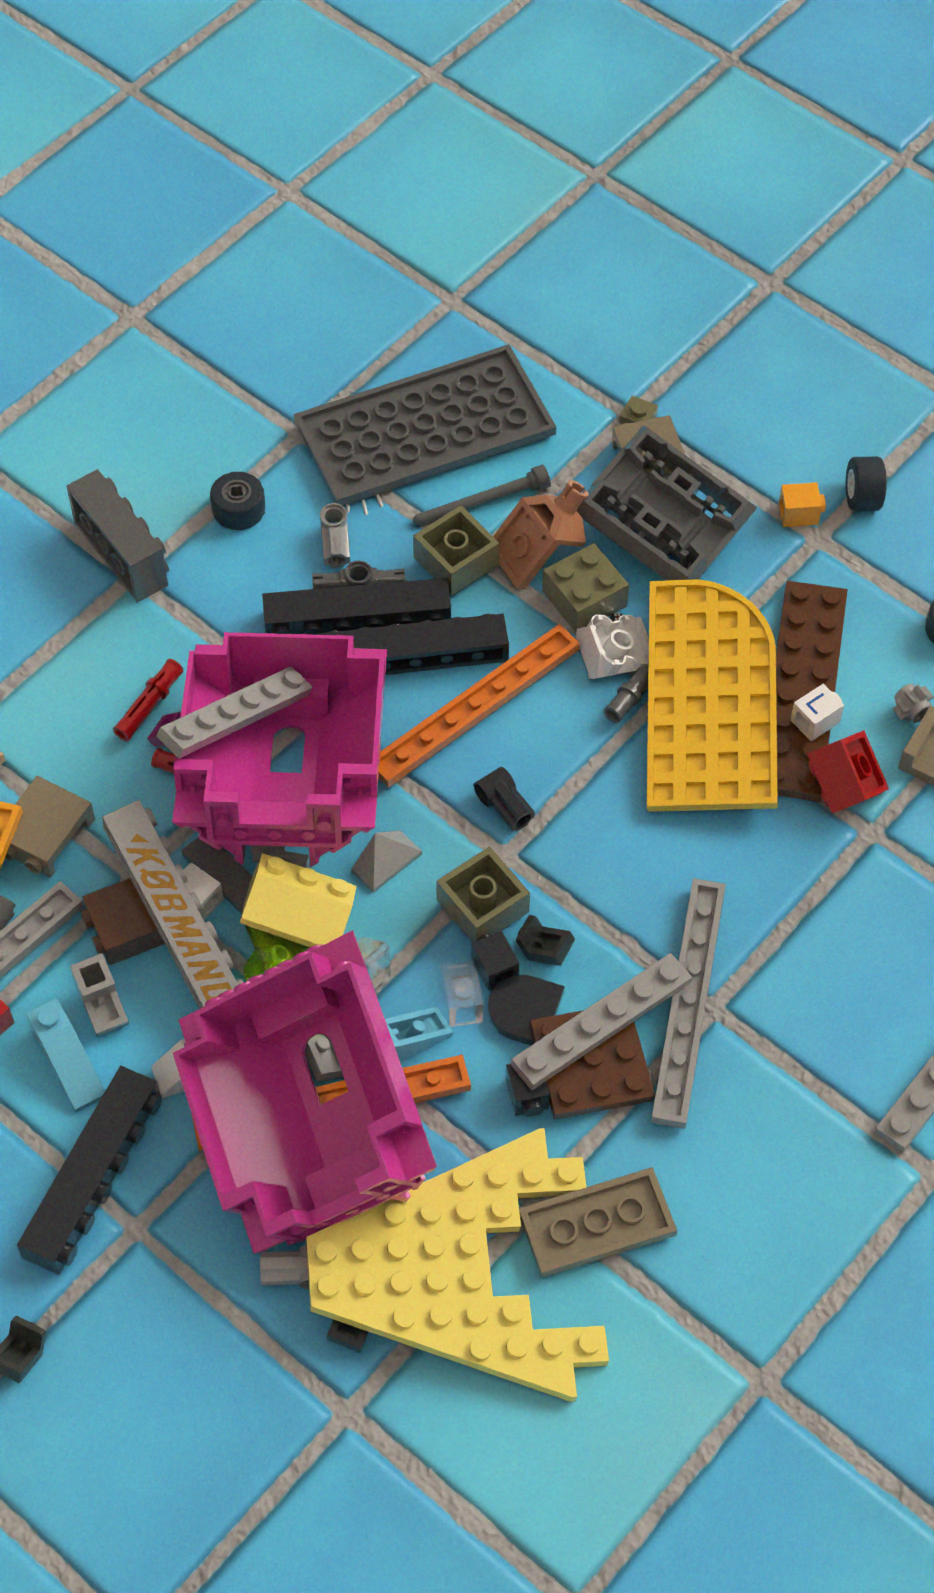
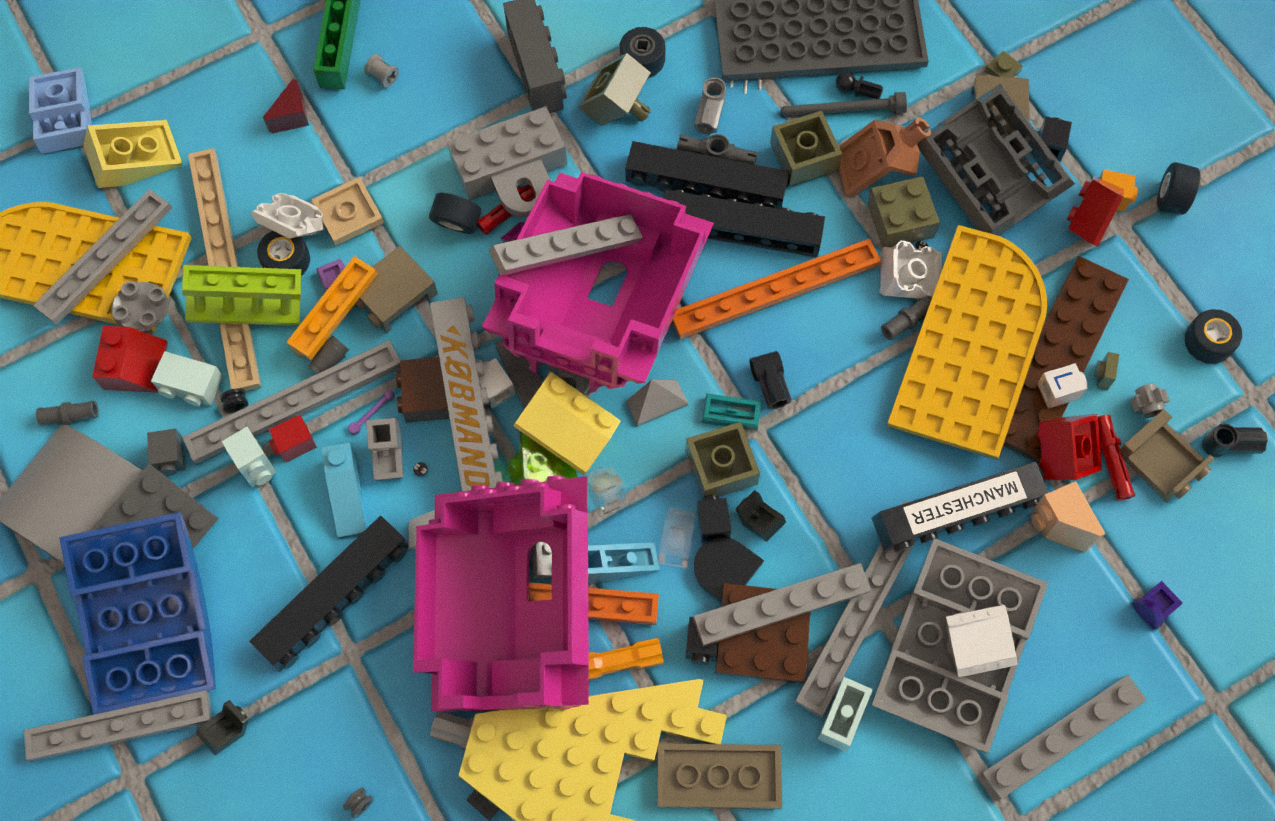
camera: 20 degrees right, 10 degrees up
(51, 988) = (354, 428): none -> medium lavender hinge
(87, 725) = (455, 213): none -> black wheel
(126, 649) = (509, 156): none -> light grey brick
(144, 1009) = (420, 469): none -> black piece
(204, 1380) = (358, 803): none -> dark grey bush
(225, 546) = (616, 91): none -> olive brick
(461, 853) = (731, 401): none -> teal tile
(463, 1126) = (639, 655): none -> light orange axle
(475, 472) = (847, 82): none -> black axle
(709, 1112) = (845, 714): none -> light aqua brick
(719, 463) = (1056, 134): none -> black brick
(754, 865) = (959, 506): none -> black brick
(787, 526) = (1095, 210): none -> red slope
(804, 1003) = (920, 670): none -> light grey slope
(826, 989) = (981, 640): none -> white slope
(858, 686) = (1106, 370): none -> olive plate
(871, 843) = (1067, 518): none -> light nougat slope
(900, 776) = (1114, 460): none -> red pin

